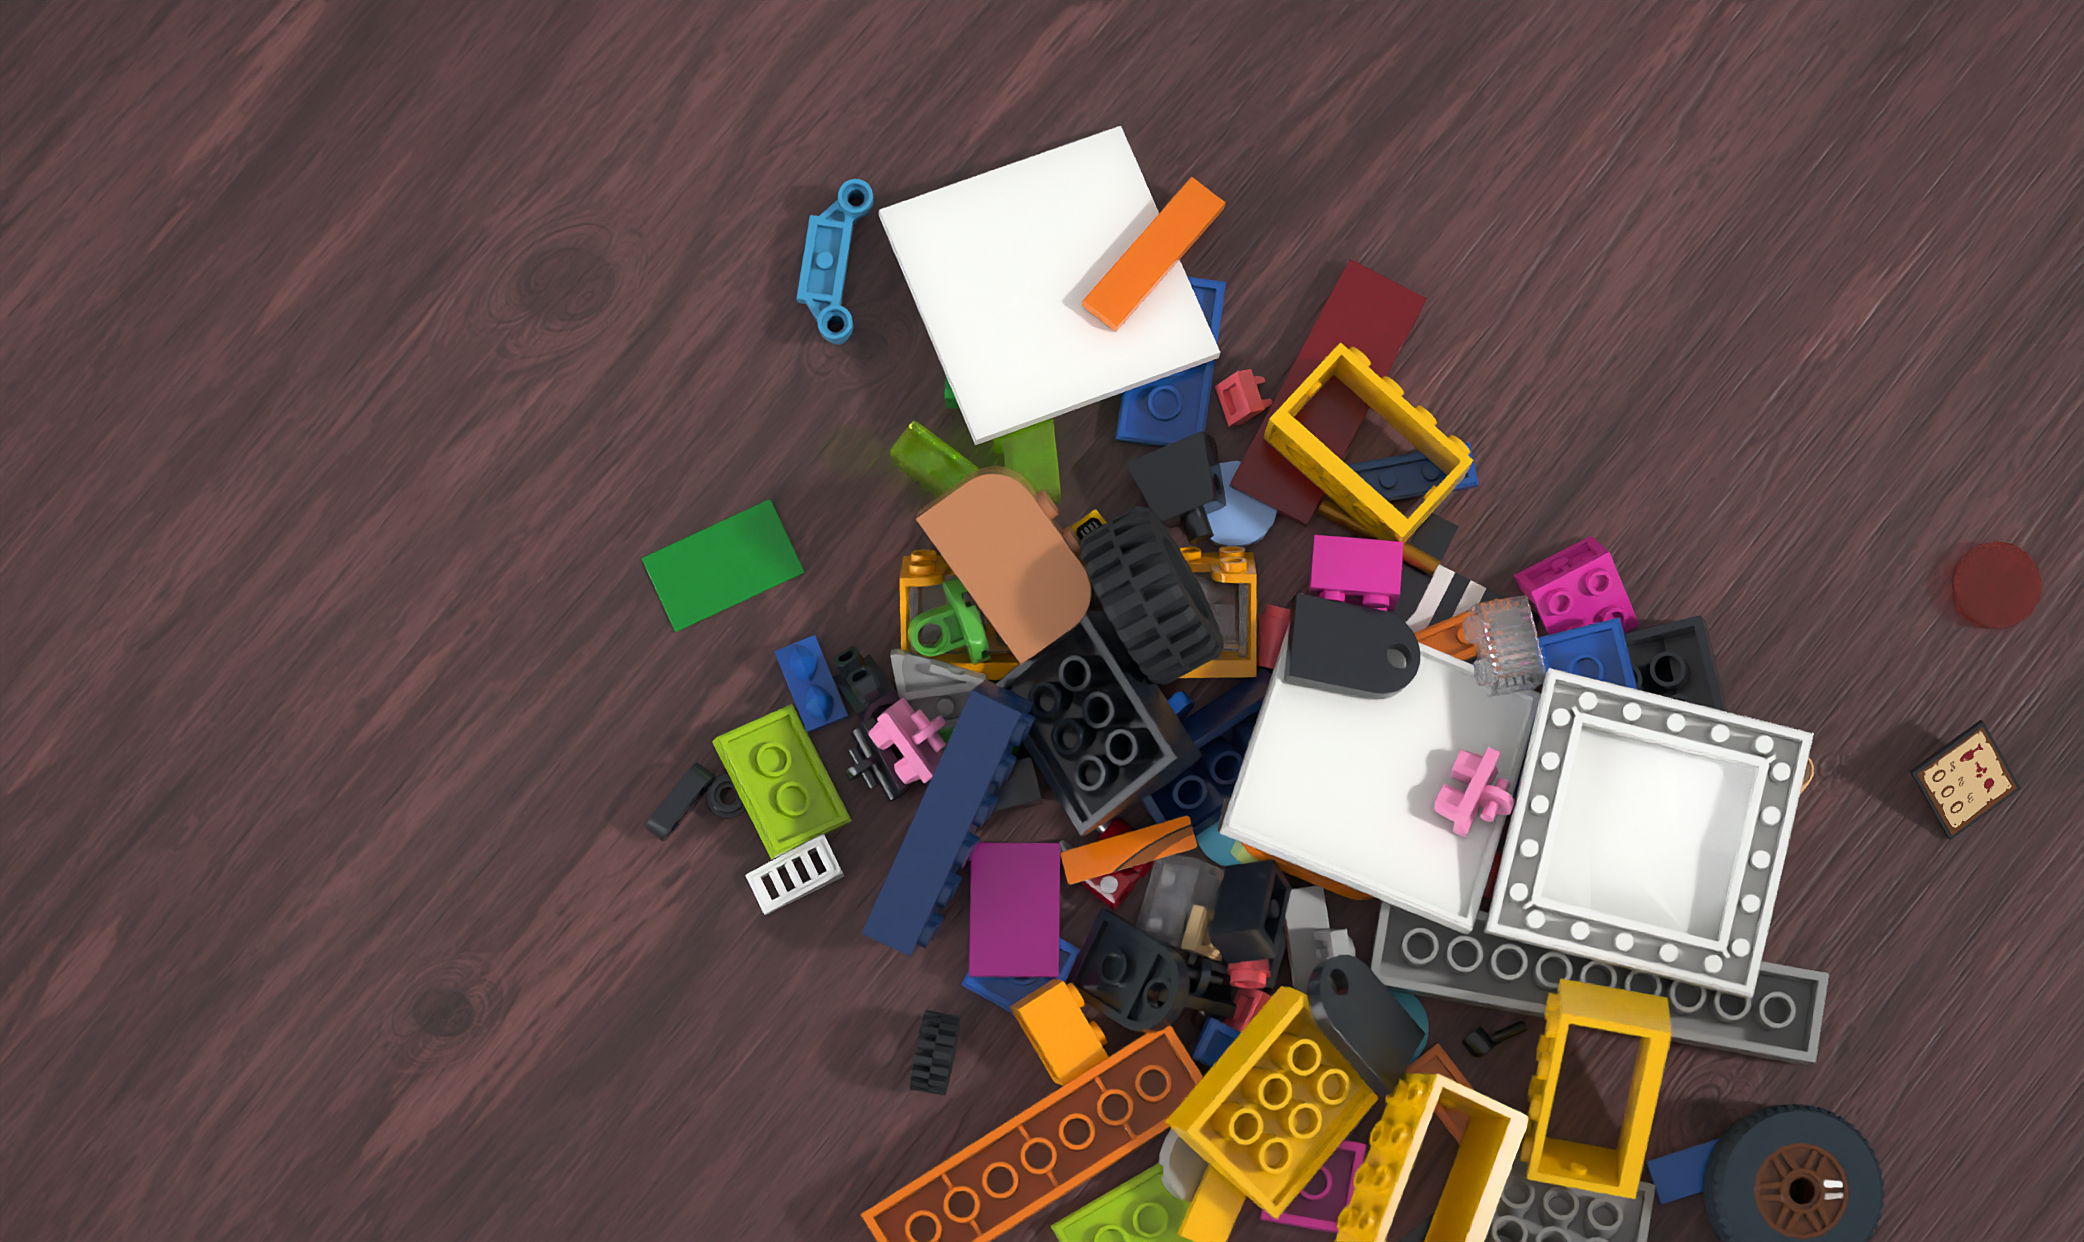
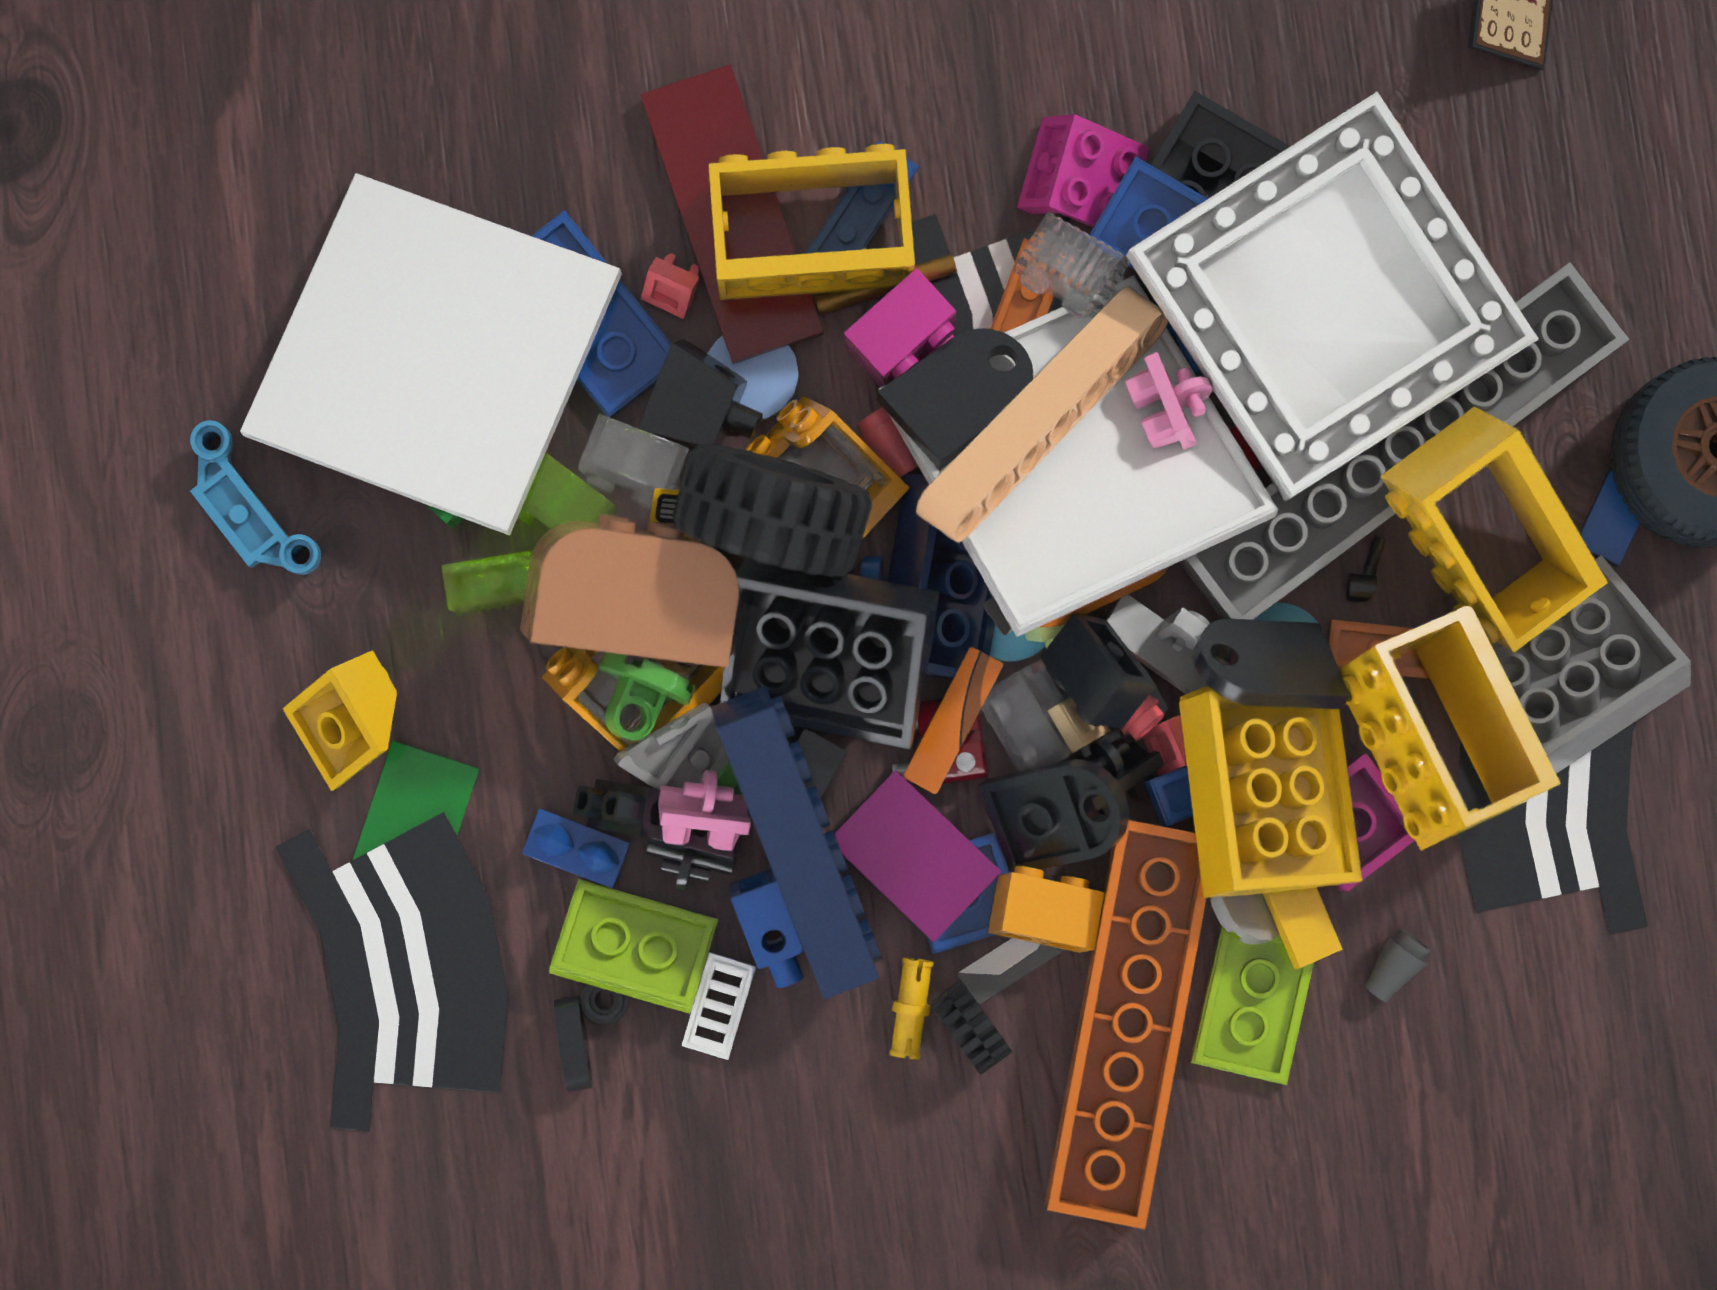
camera: 50 degrees left, 5 degrees up
(630, 646) = (406, 966): none -> black sticker
(756, 452) = (345, 717): none -> yellow slope
(882, 838) = (763, 909): none -> blue torso
(911, 1003) = (911, 1008): none -> yellow pin
(997, 1042) = (1004, 967): none -> sticker
(1099, 476) = (631, 460): none -> clear brick
(1153, 254) = (488, 245): orange tile -> none
(1385, 715) = (1041, 415): none -> light nougat beam

